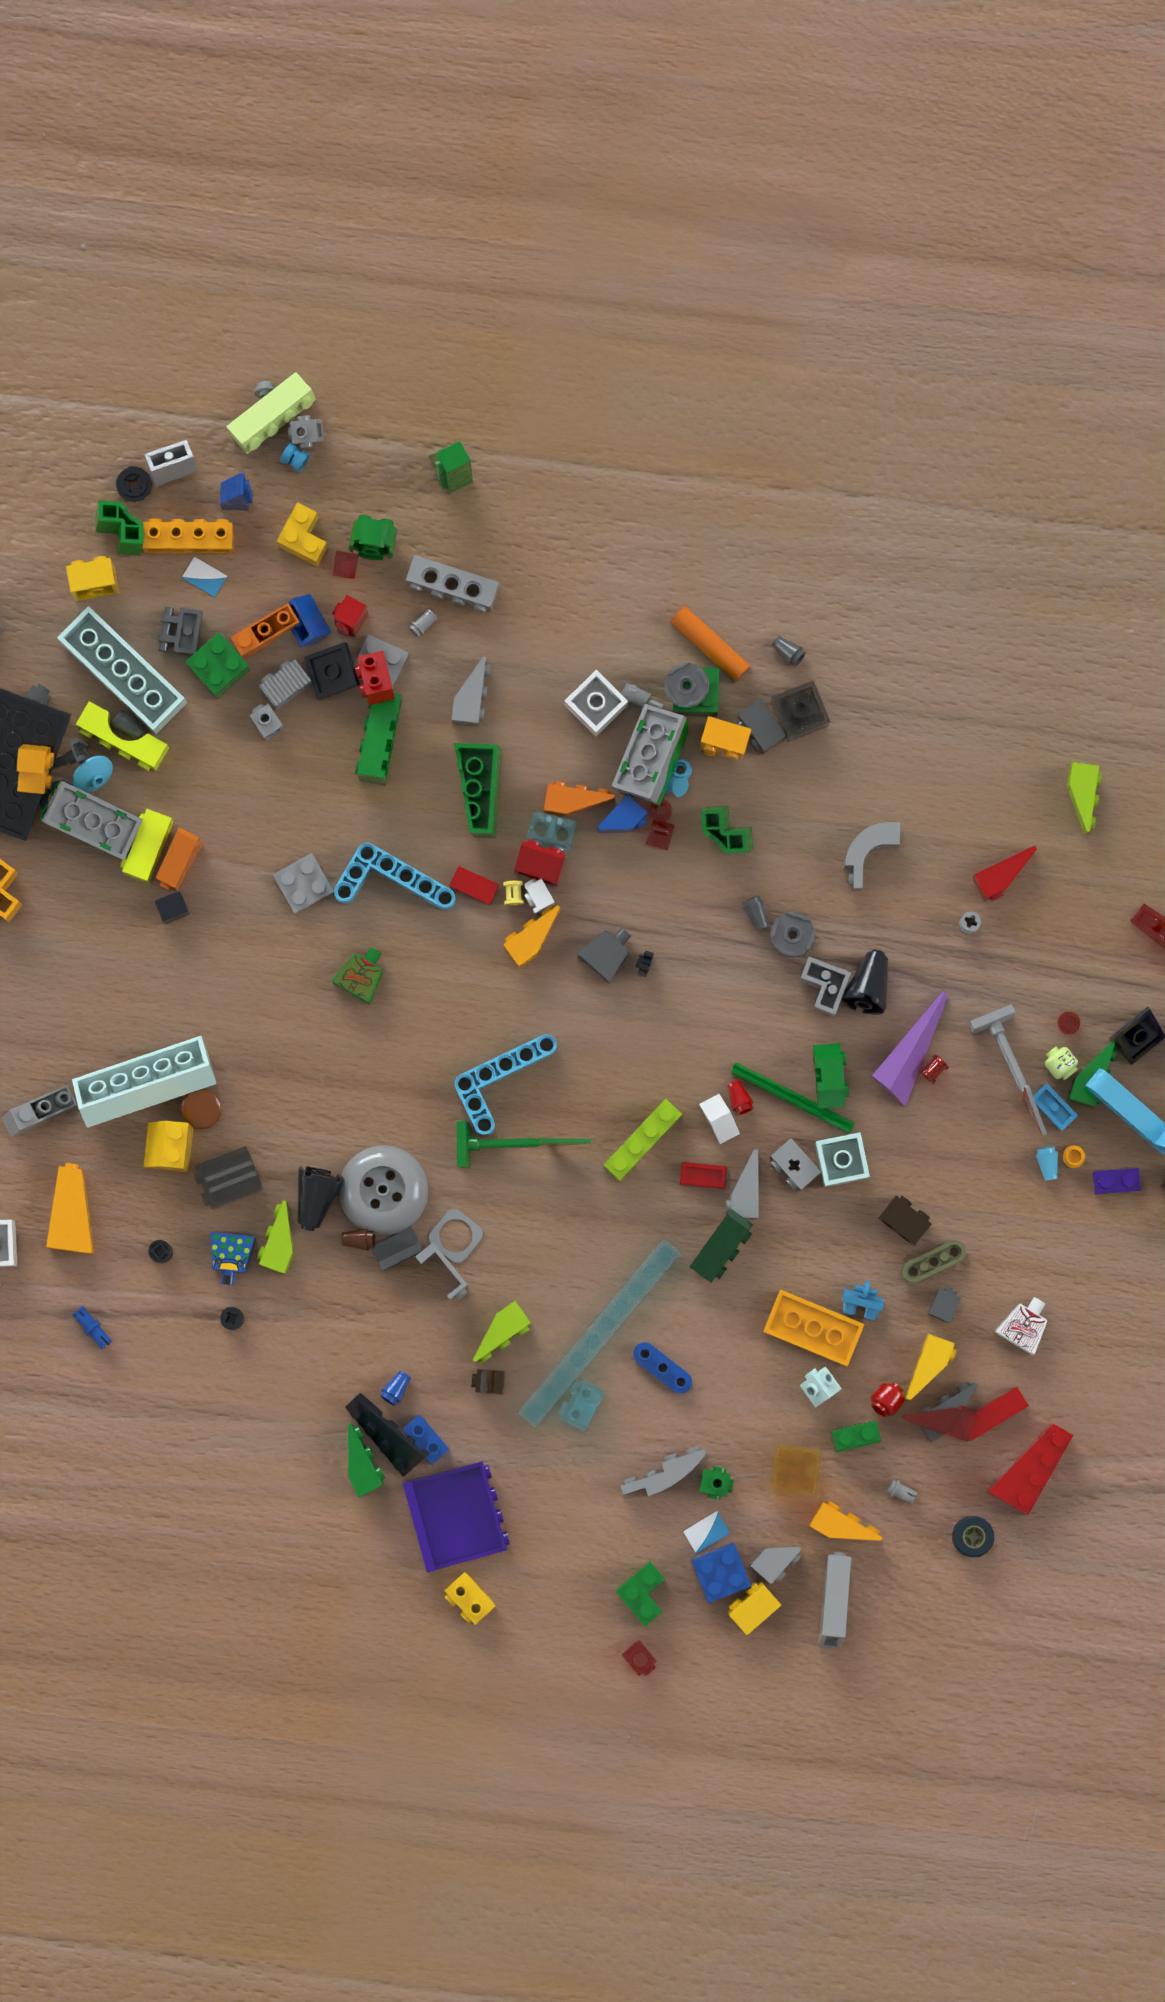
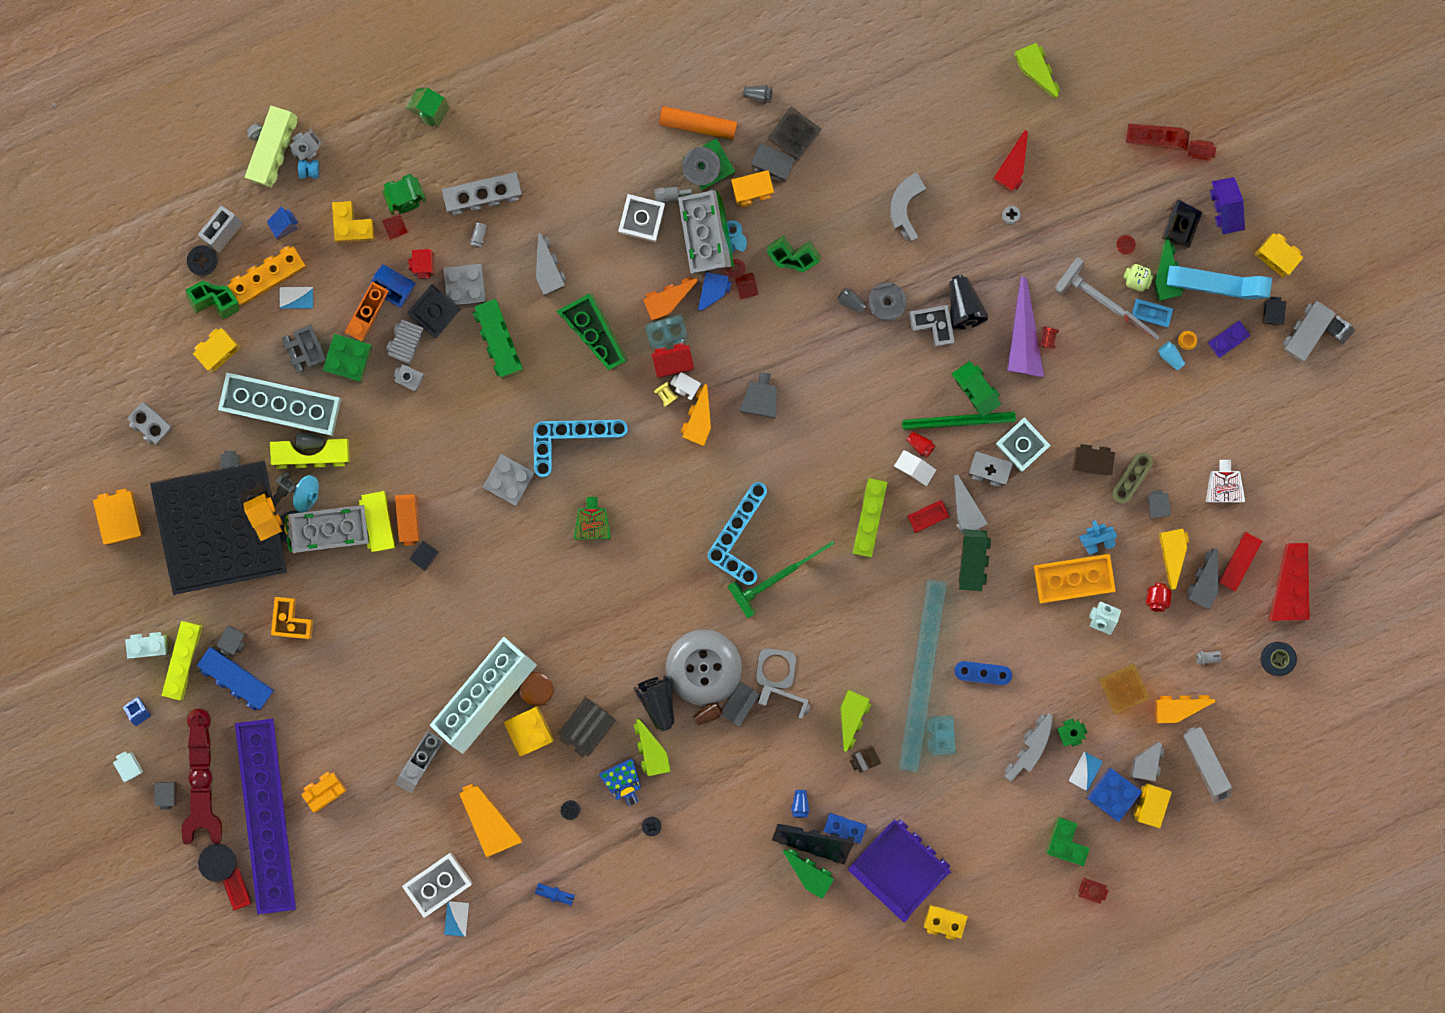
camera: 35 degrees left, 5 degrees up
(376, 678) = (470, 298): red brick -> none
(474, 885) = (634, 405): red tile -> none
(644, 963) = (792, 387): black plate -> none
(855, 1436) = (1151, 638): green brick -> none
(950, 1421) = (1211, 588): clear red slope -> none

